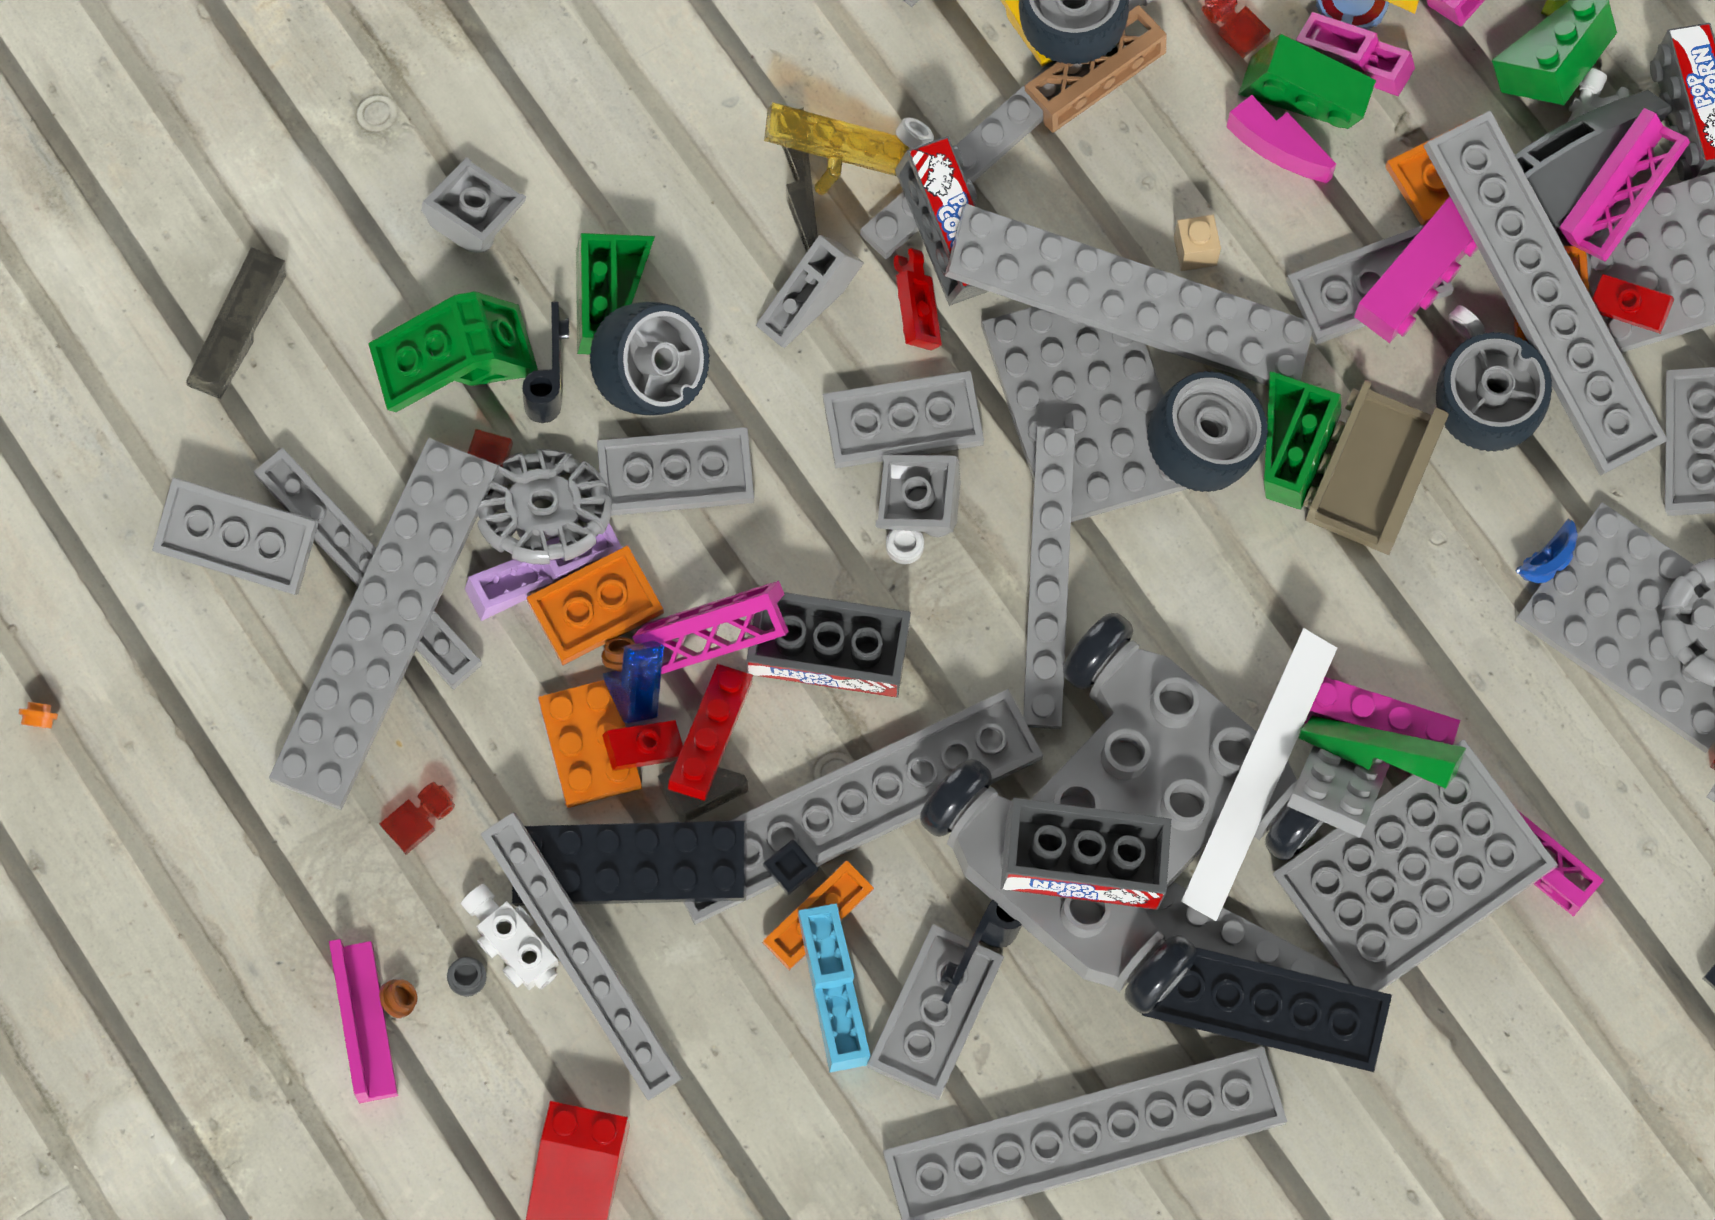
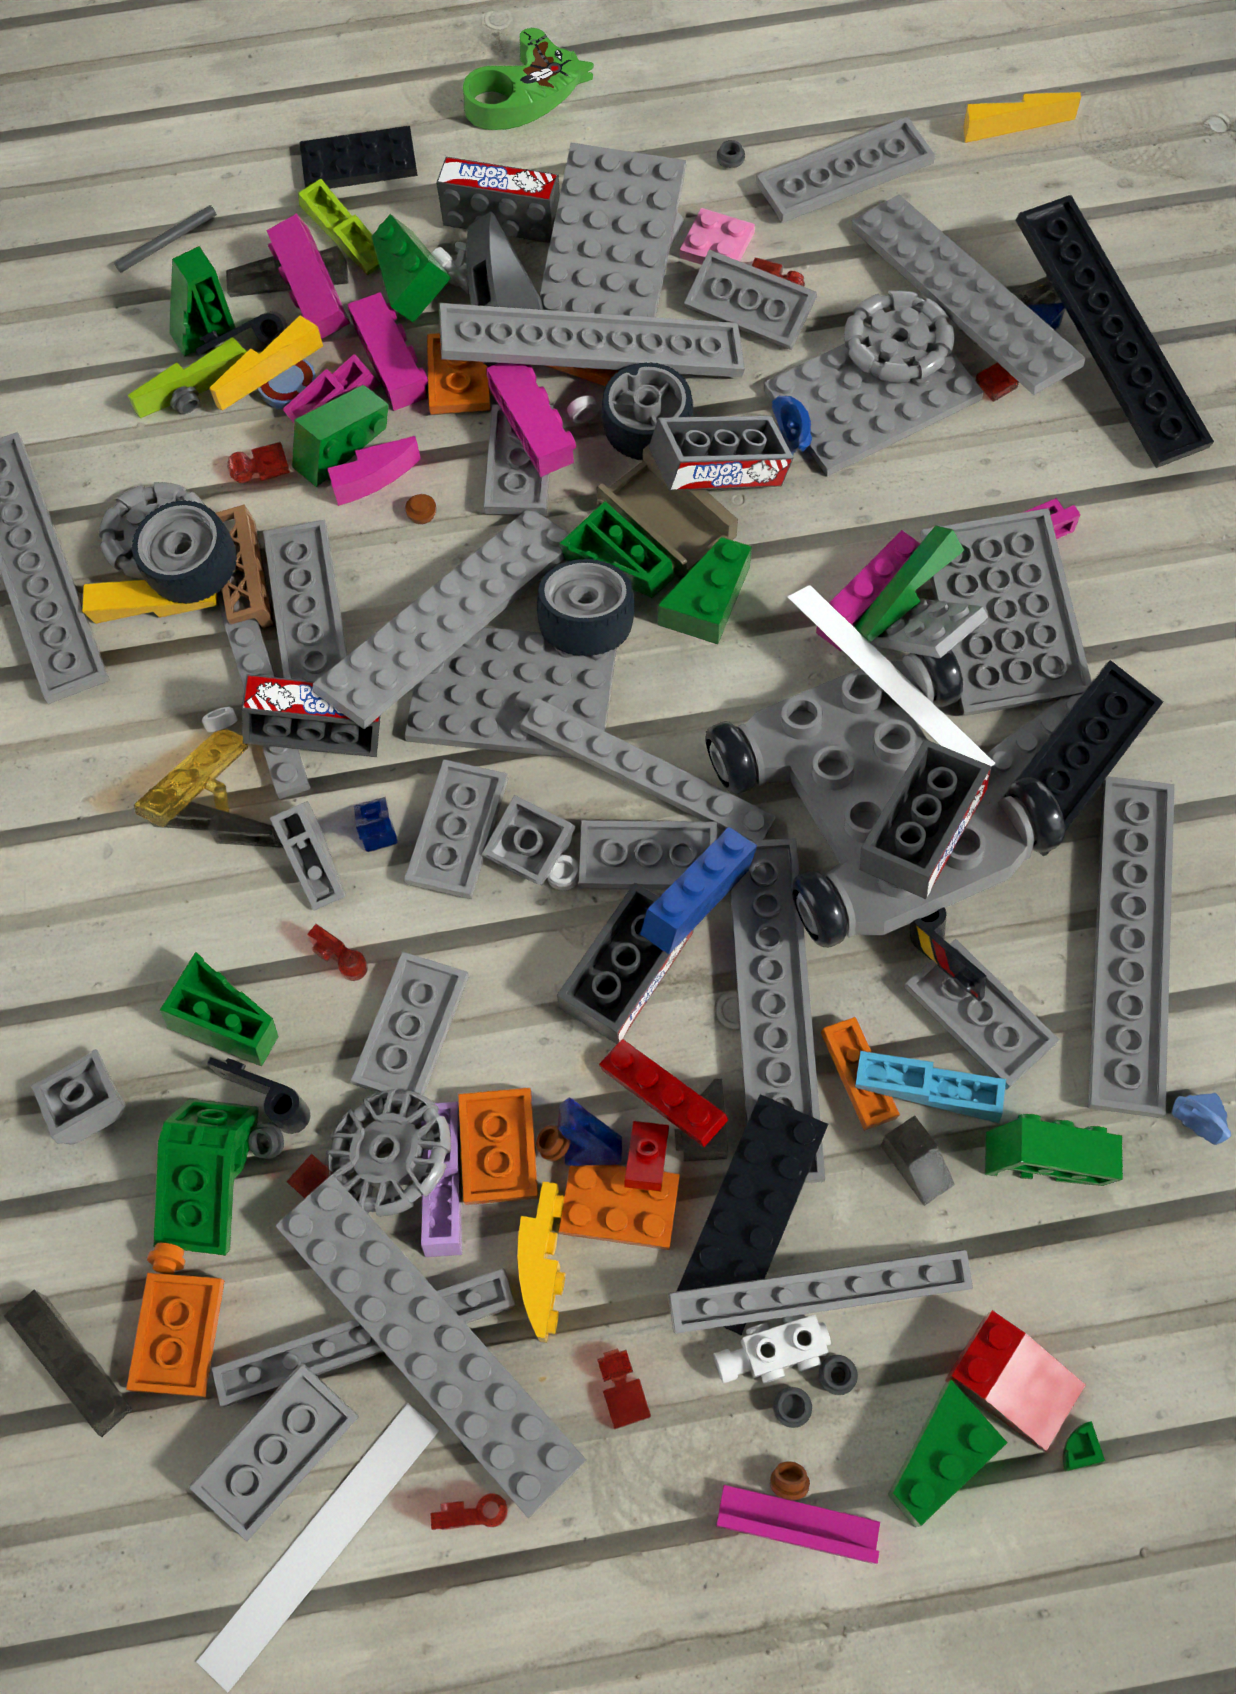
camera: 60 degrees left, 5 degrees down
(178, 615) = (316, 1548): none -> white sticker
(246, 718) = (455, 1516): none -> clear red plate
(299, 403) = (175, 1335): none -> orange plate
(362, 360) = (166, 1258): none -> orange plate
(478, 1126) = (945, 1456): none -> green wedge
(484, 695) = (540, 1276): none -> yellow slope
(506, 393) = (259, 1141): none -> dark grey plate
(509, 995) = (846, 1366): none -> dark grey plate
(649, 358) = (304, 1000): wheel -> none
(712, 615) = (563, 1040): dark pink fence -> none
(721, 357) = (329, 946): none -> clear red plate
(752, 1003) = (918, 1160): none -> clear smoke slope
(790, 867) = (811, 1075): black tile -> none
(818, 1131) = (1055, 1151): none -> green wedge
(871, 337) = (375, 824): none -> clear blue slope
(917, 302) = (359, 775): red plate -> none
(926, 674) = (698, 890): none -> blue brick
(960, 618) = (640, 852): none -> light grey plate
(1085, 153) = (305, 599): none -> light grey plate
(1197, 242) = (424, 556): tan brick -> none
(1259, 212) = (421, 508): none -> dark orange plate
(1295, 552) = (708, 592): none -> green wedge
(1440, 83) = (387, 351): none -> dark pink brick
(1464, 489) = (720, 452): none -> dark grey brick
(1611, 185) = (527, 262): dark pink fence -> none
(1632, 303) = (628, 293): red plate -> none

